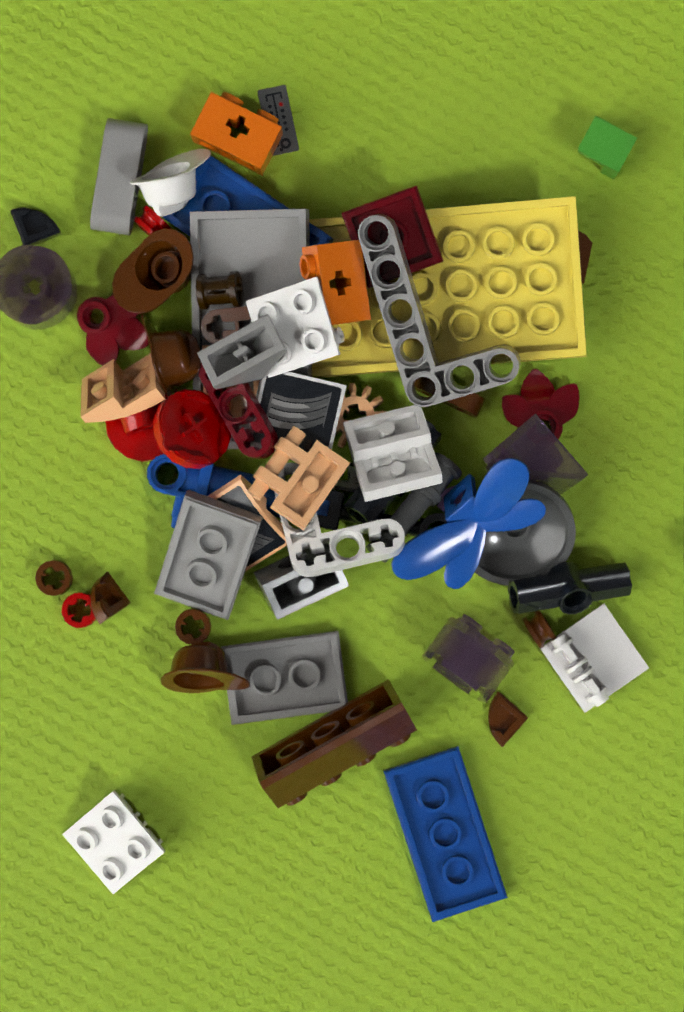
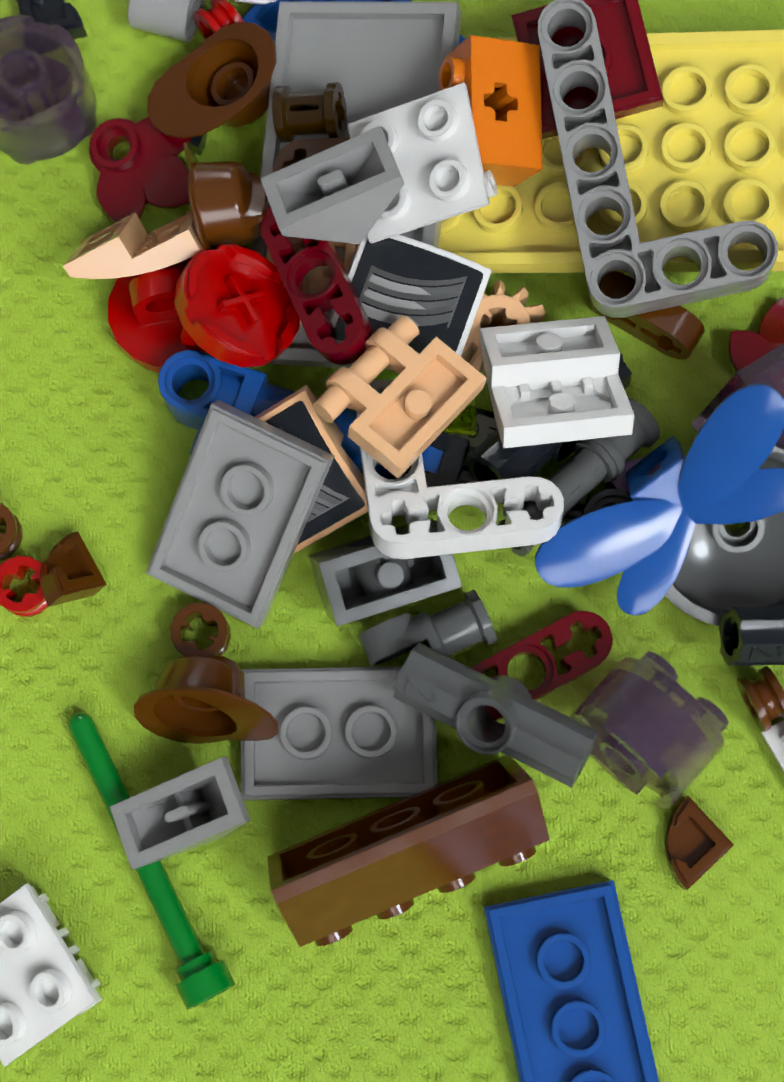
camera: 10 degrees right, 10 degrees down
(197, 739) = (180, 814): none -> light grey slope
(220, 828) = (199, 971): none -> green piece
(341, 610) = (442, 631): none -> dark grey connector
(358, 655) = (531, 729): none -> dark grey piece
(423, 618) = (560, 635): none -> dark red beam

